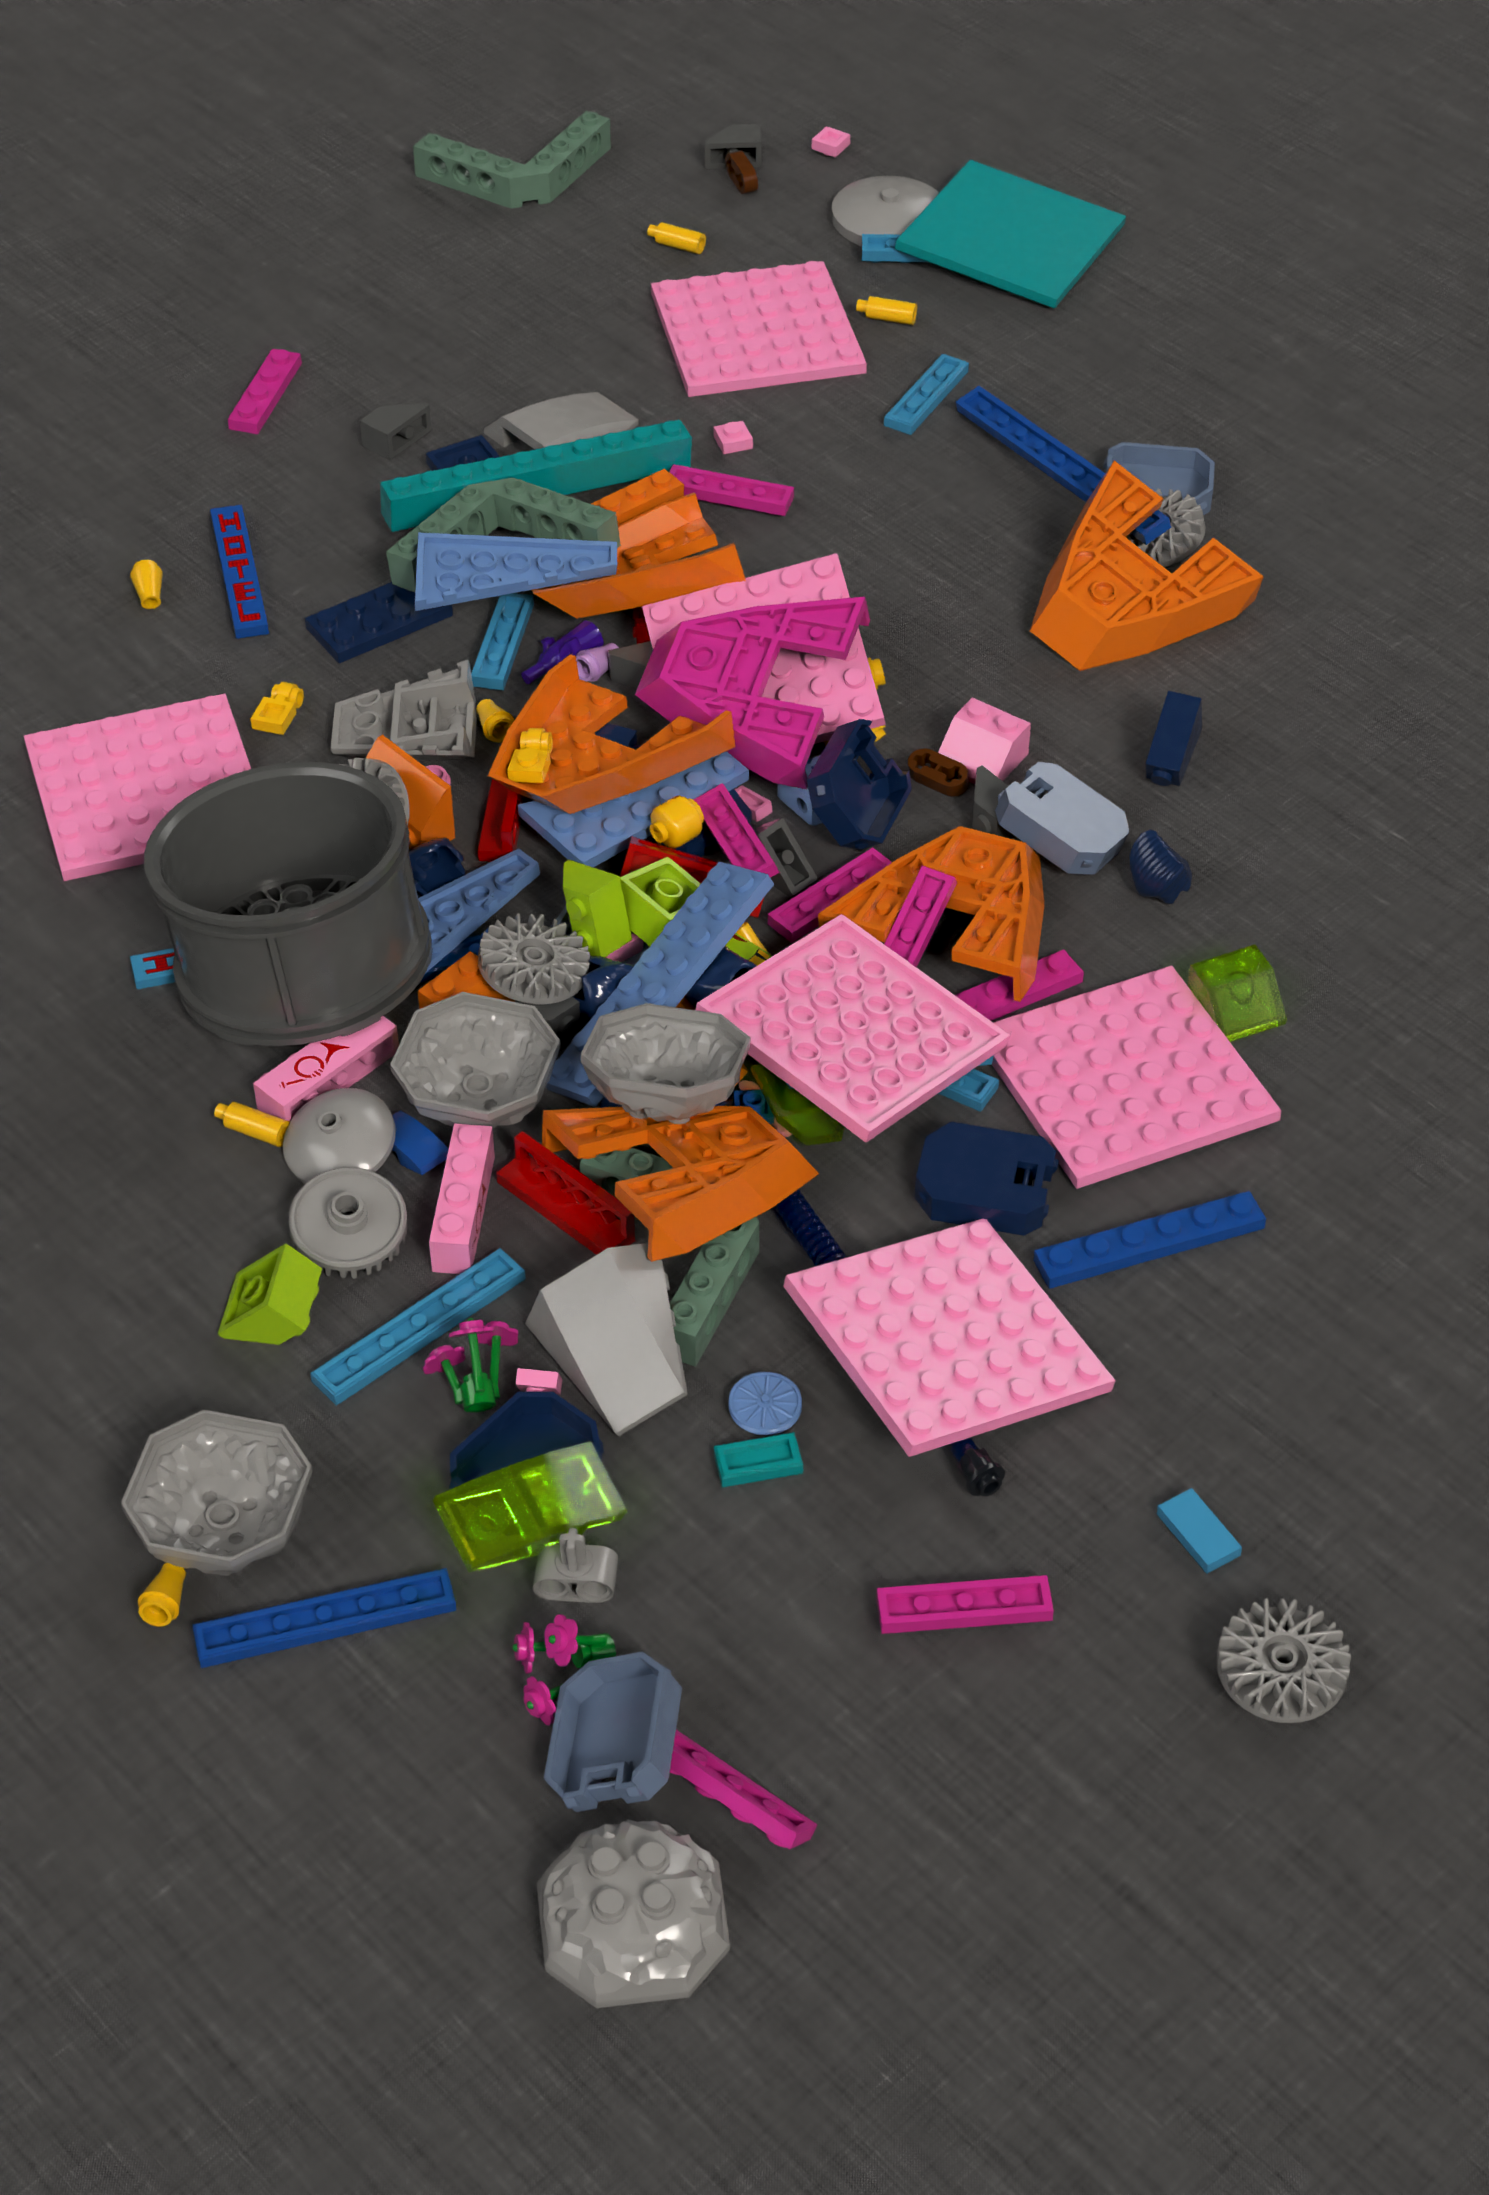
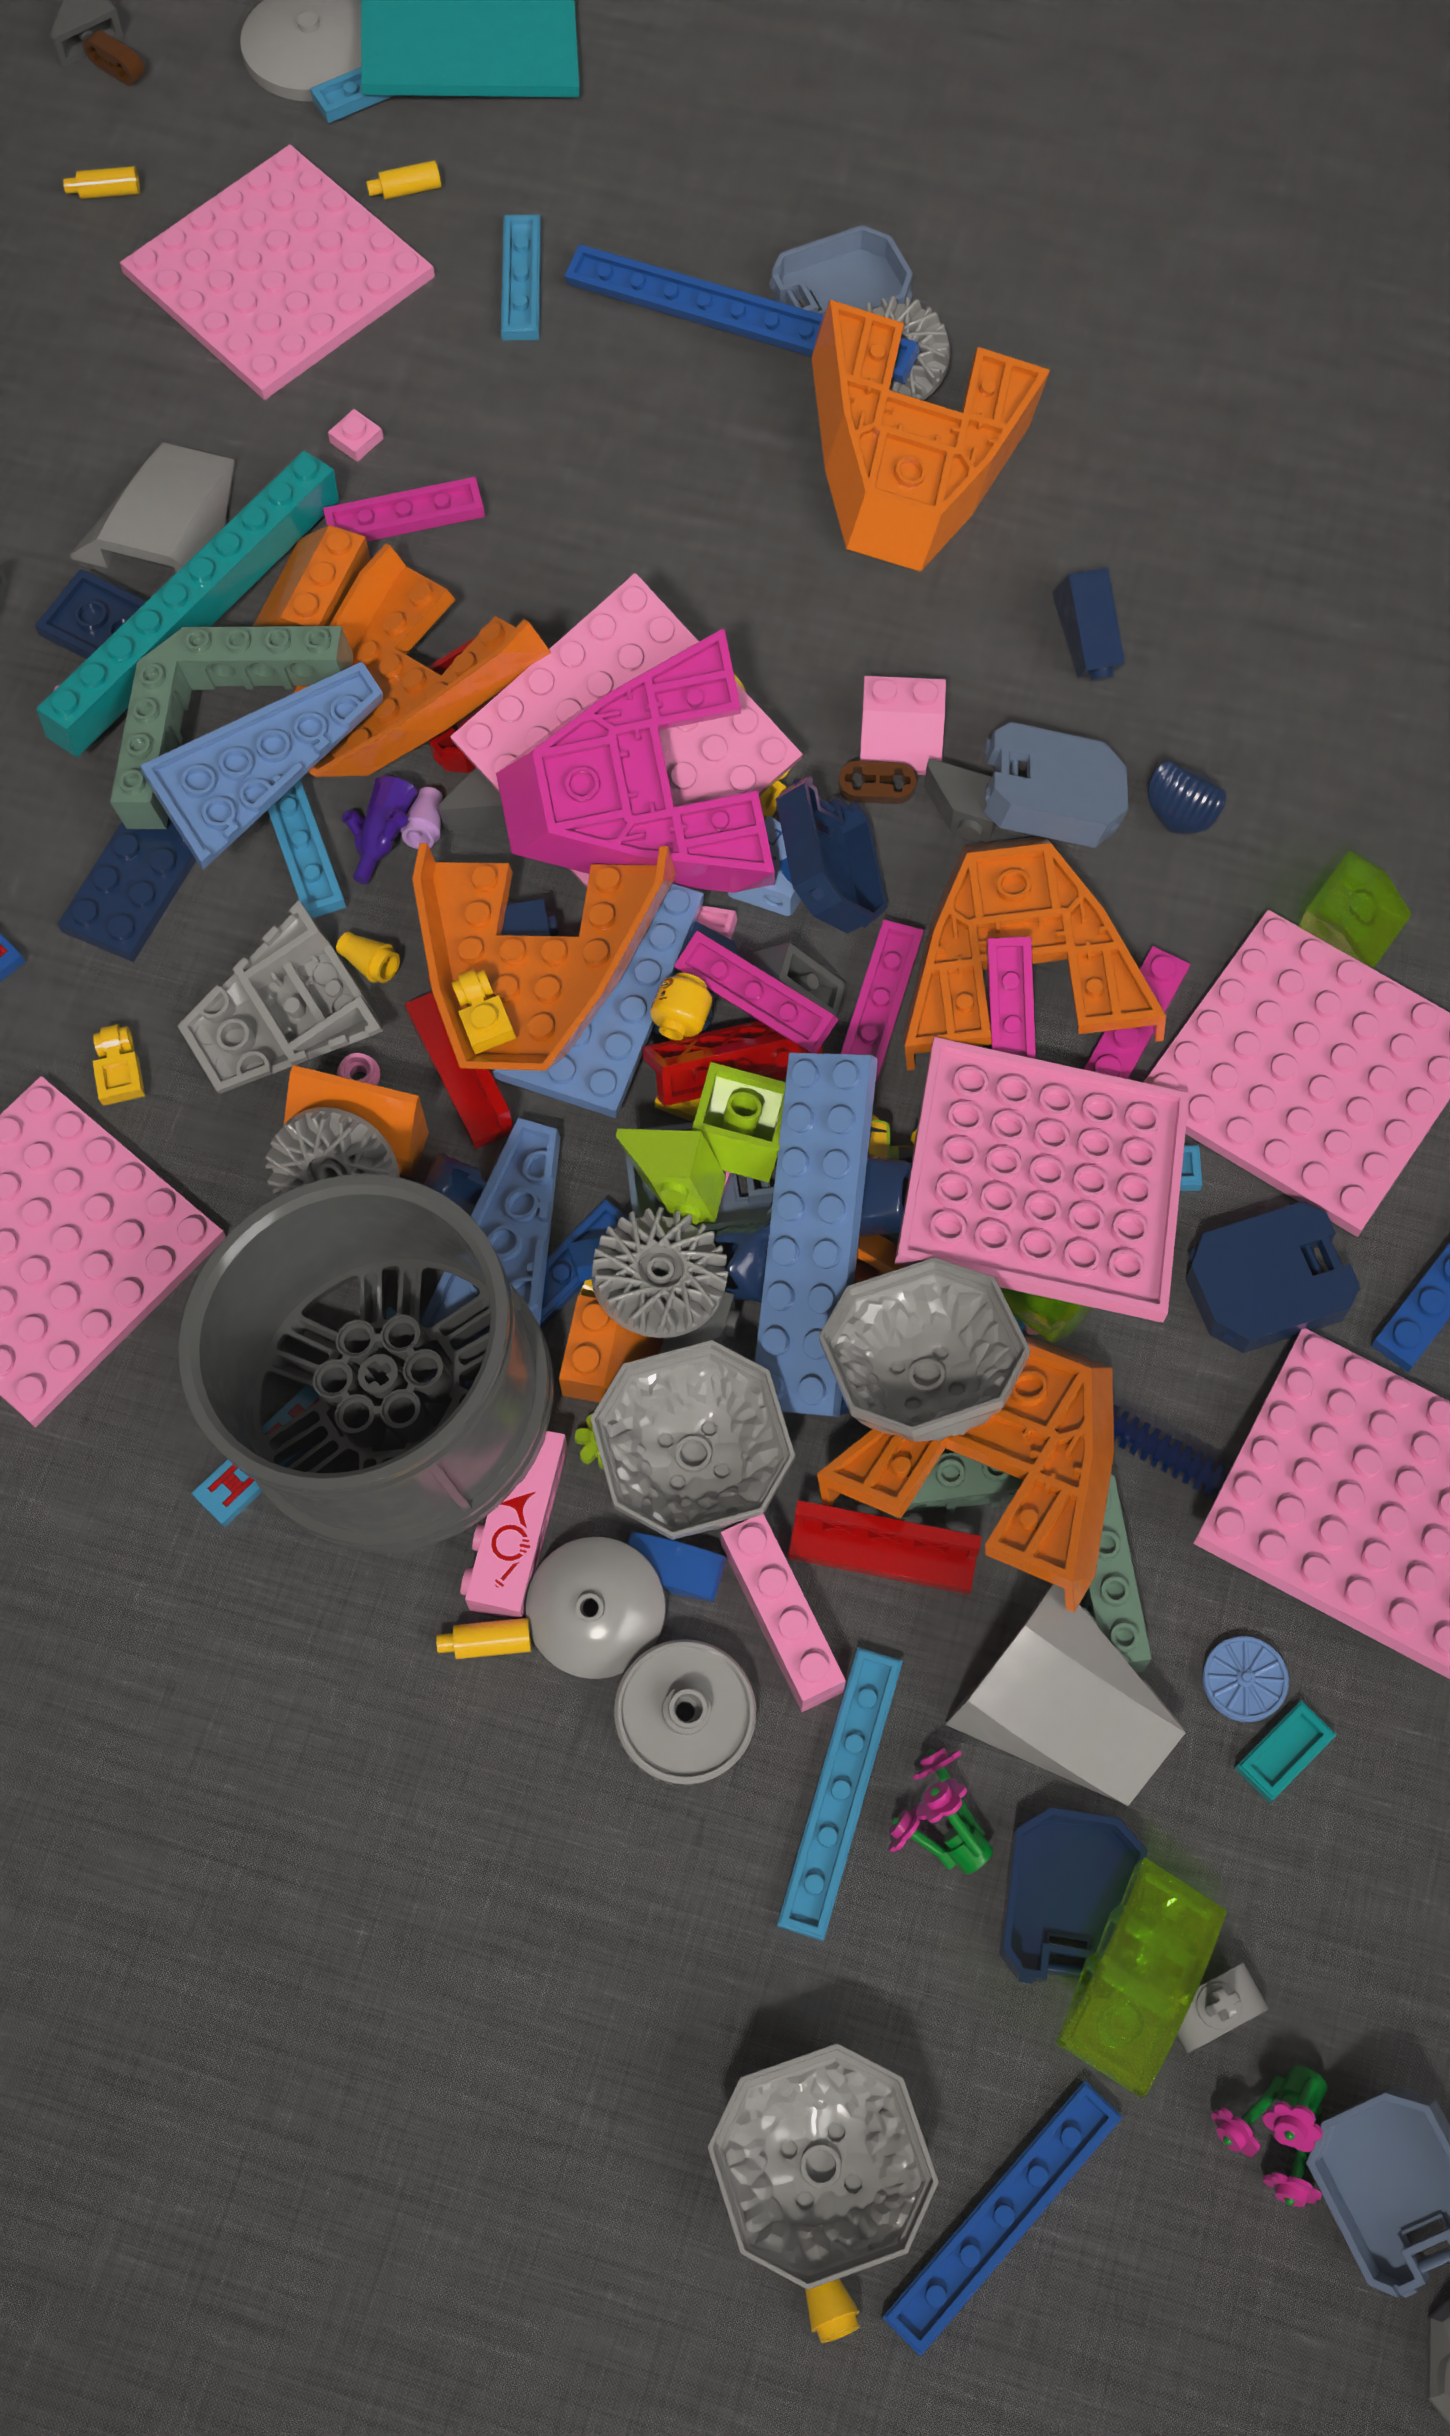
camera: 30 degrees left, 20 degrees up
(271, 1298) = (672, 1860): lime slope -> none
(538, 1381) = (1020, 1797): bright pink plate -> none

